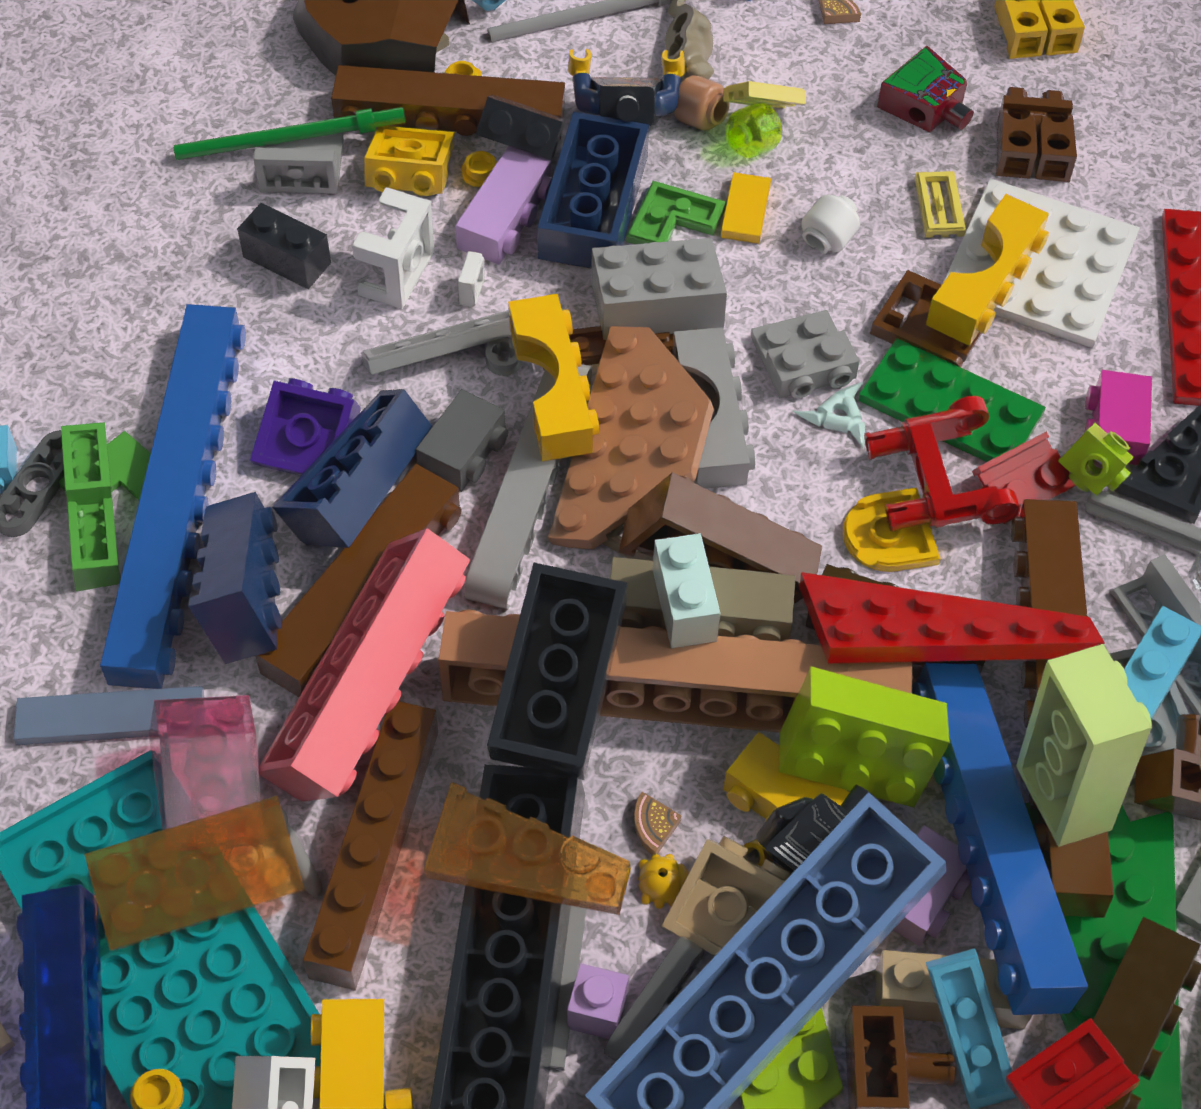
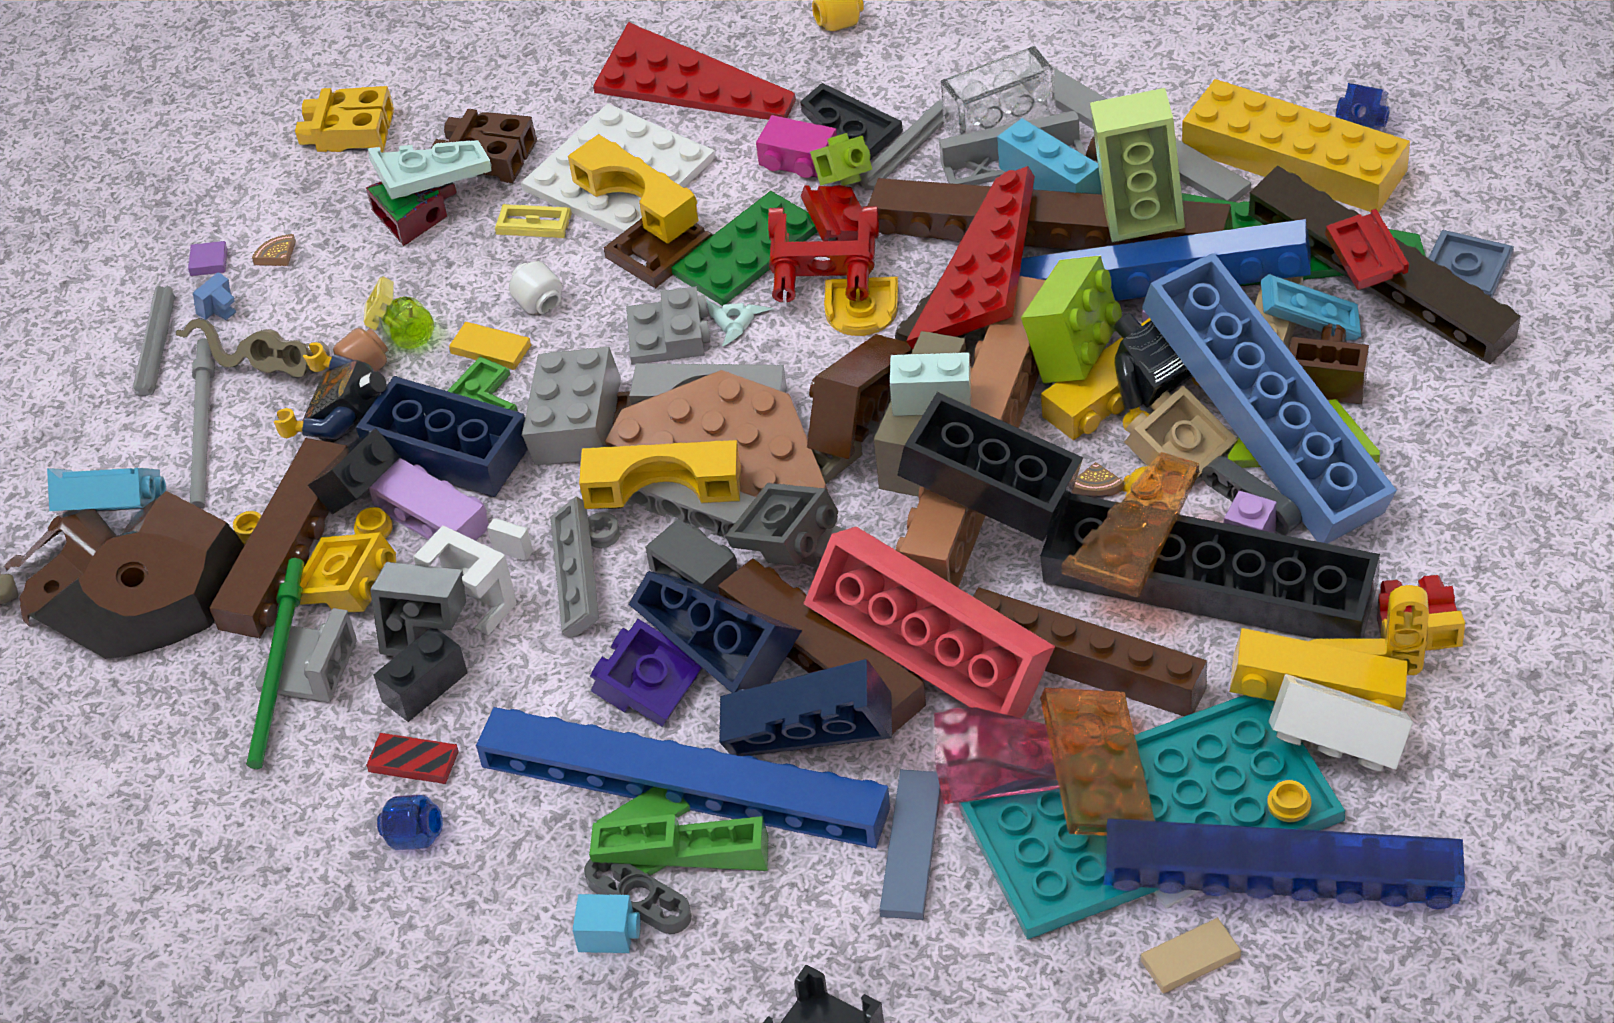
camera: 70 degrees left, 10 degrees down
(107, 280) = (410, 822): none -> clear blue head
(194, 269) = (412, 758): none -> red tile
(349, 206) = (413, 600): none -> dark grey brick
(494, 501) = (784, 523): none -> dark grey plate
(959, 82) = (420, 170): none -> light aqua wing

